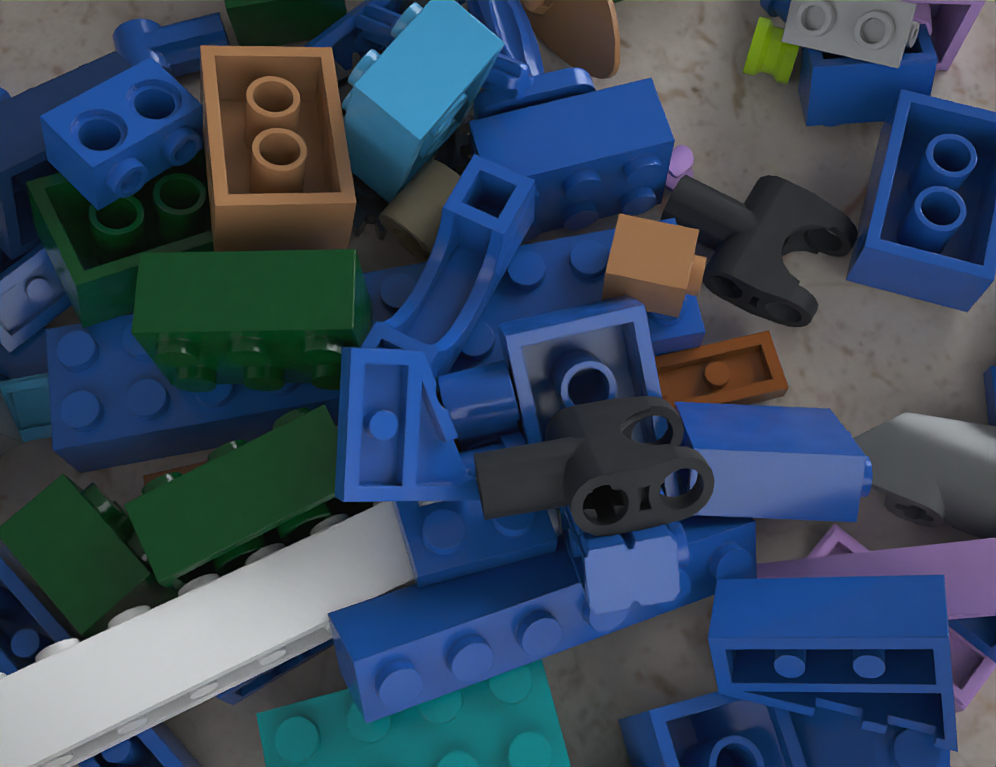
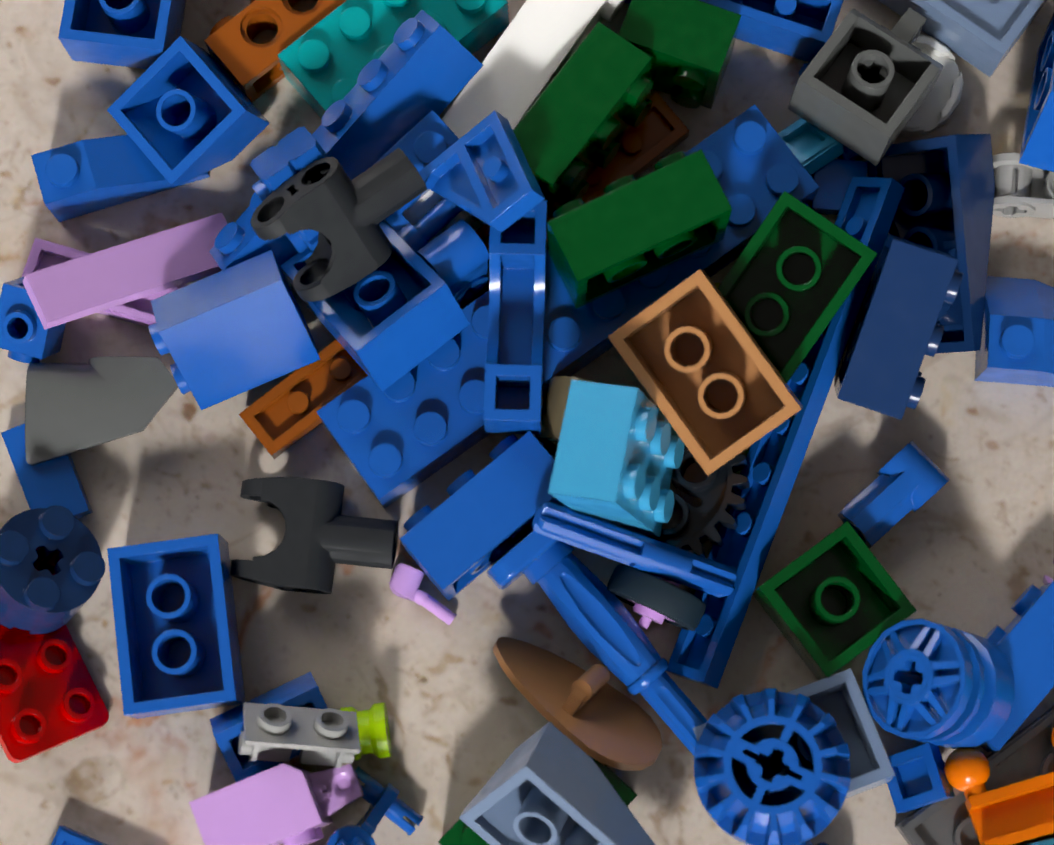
camera: 155 degrees right, 10 degrees up
(123, 132) = (837, 328): blue brick -> none
(653, 264) = (371, 421): medium nougat brick -> none
(841, 646) = (136, 205): blue wedge -> none

